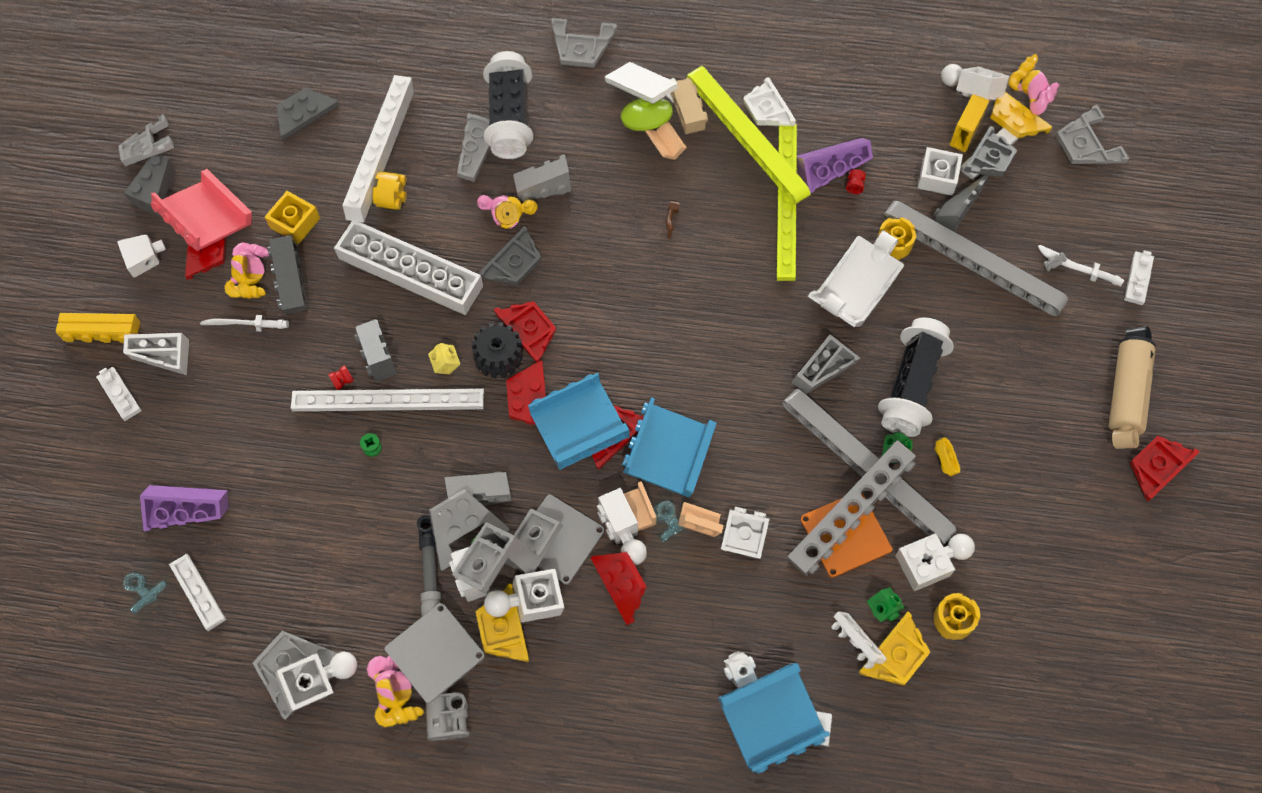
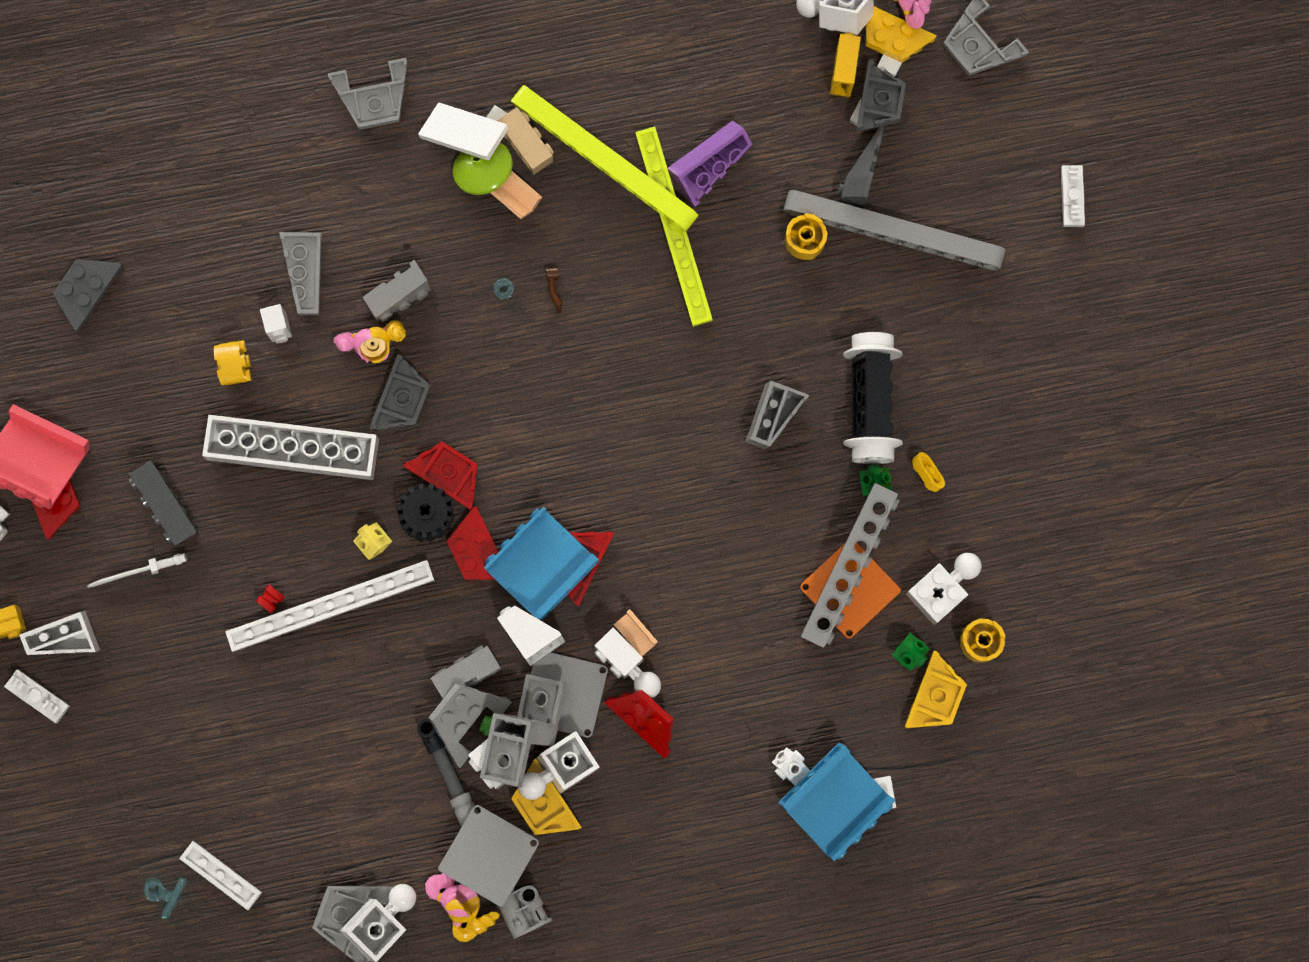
camera: 25 degrees left, 15 degrees up
(179, 505) = (165, 794): medium lavender wedge -> none
(246, 271) = (112, 509): hair -> none
(292, 217) = (136, 430): yellow brick -> none
(371, 449) = (335, 664): green wheel -> none
(375, 350) = (293, 555): wedge -> none
(378, 148) = (199, 314): white brick -> none
(436, 172) = (276, 323): none -> white brick
(508, 105) = (324, 212): brick -> none
(548, 476) = (529, 634): none -> white slope
(629, 201) = (503, 282): none -> clear light blue plate
(668, 449) = (644, 561): dark azure panel -> none
(669, 518) = (678, 639): clear light blue piece -> none
(700, 520) = (701, 625): light nougat panel -> none
(745, 532) = (750, 623): white plate -> none
(767, 106) = (615, 112): white wing -> none
(855, 184) = (741, 177): red wheel -> none
(858, 639) = (895, 696): white plate -> none
(859, 279) = (780, 304): white panel -> none
(862, 460) = (848, 508): light grey beam -> none
(940, 171) = (829, 137): white brick -> none
(1055, 261) = (980, 207): light grey piece -> none
(1094, 272) = (984, 200): white sword -> none
(1132, 387) = (1094, 332): tan piece -> none
(1159, 464) = (1141, 407): red wing -> none

